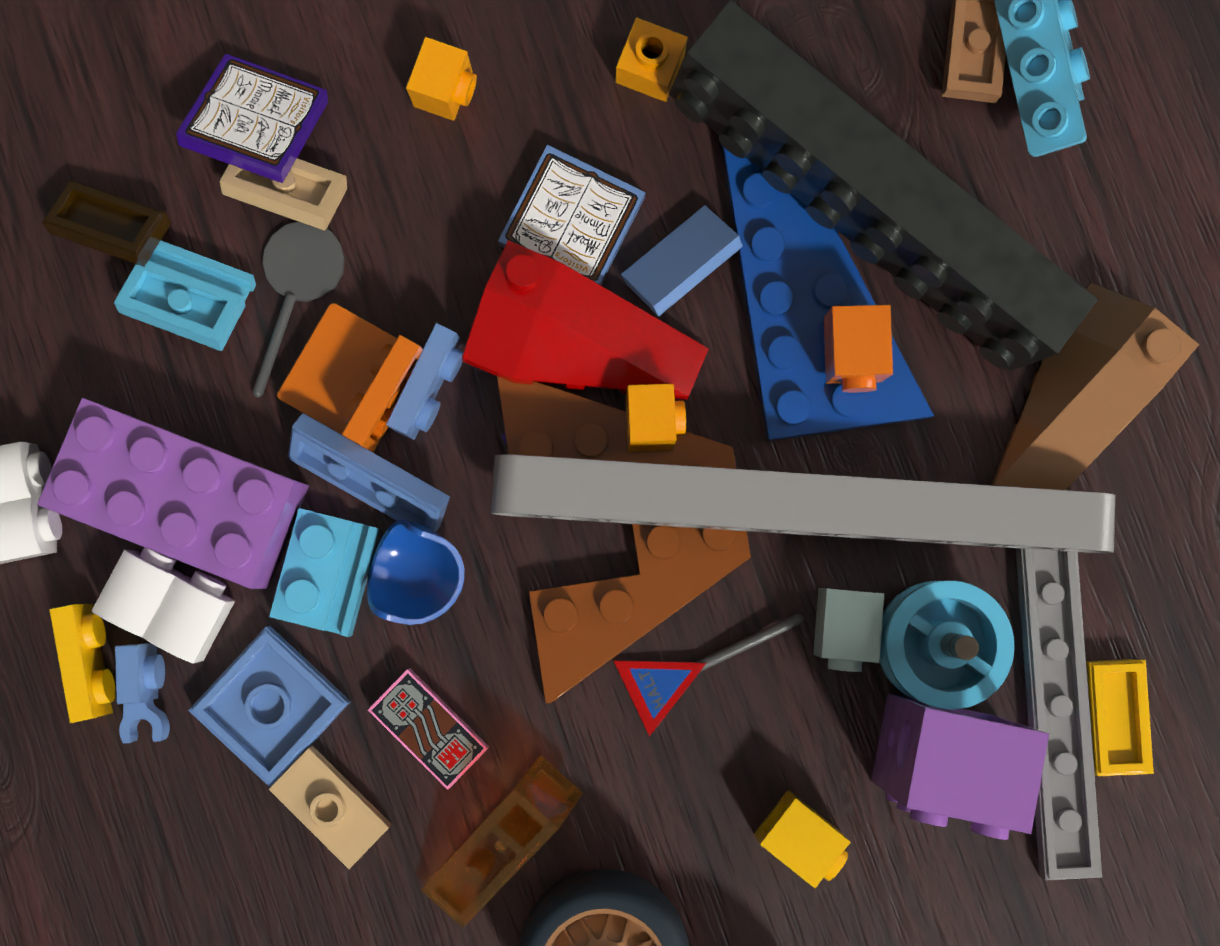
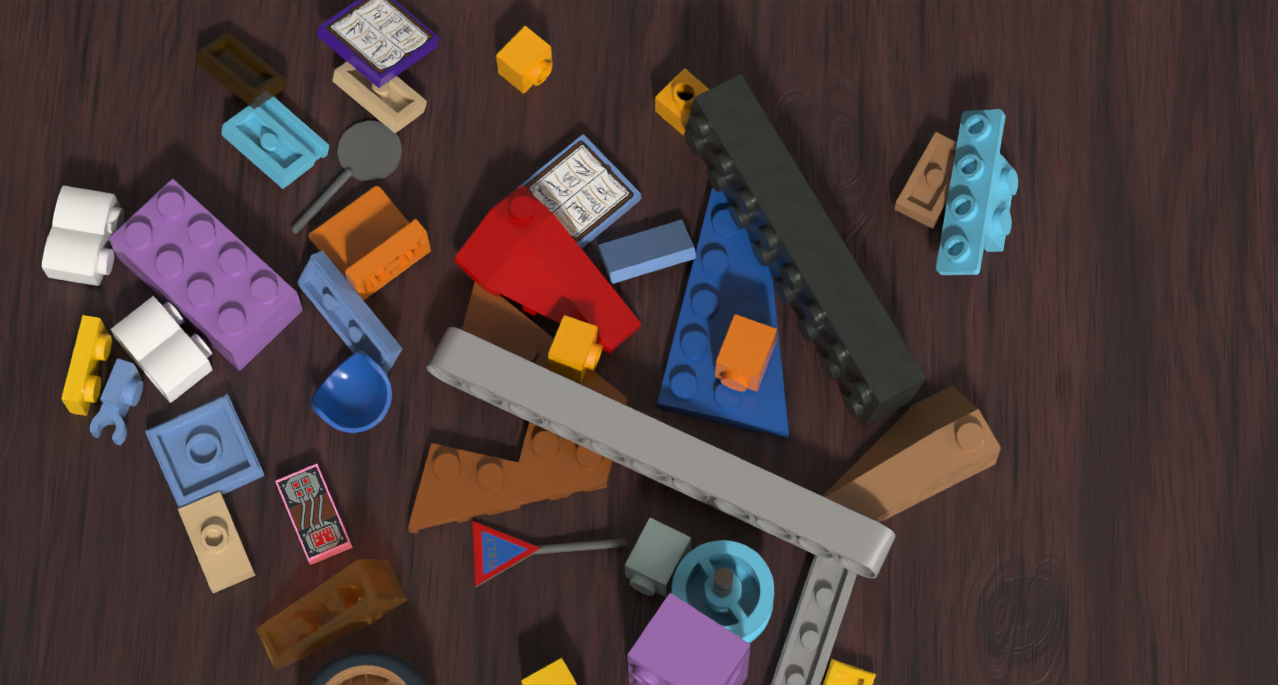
camera: 25 degrees right, 15 degrees down
(325, 572) = (287, 374): medium azure plate -> none
(417, 403) = (432, 256): medium blue plate -> none

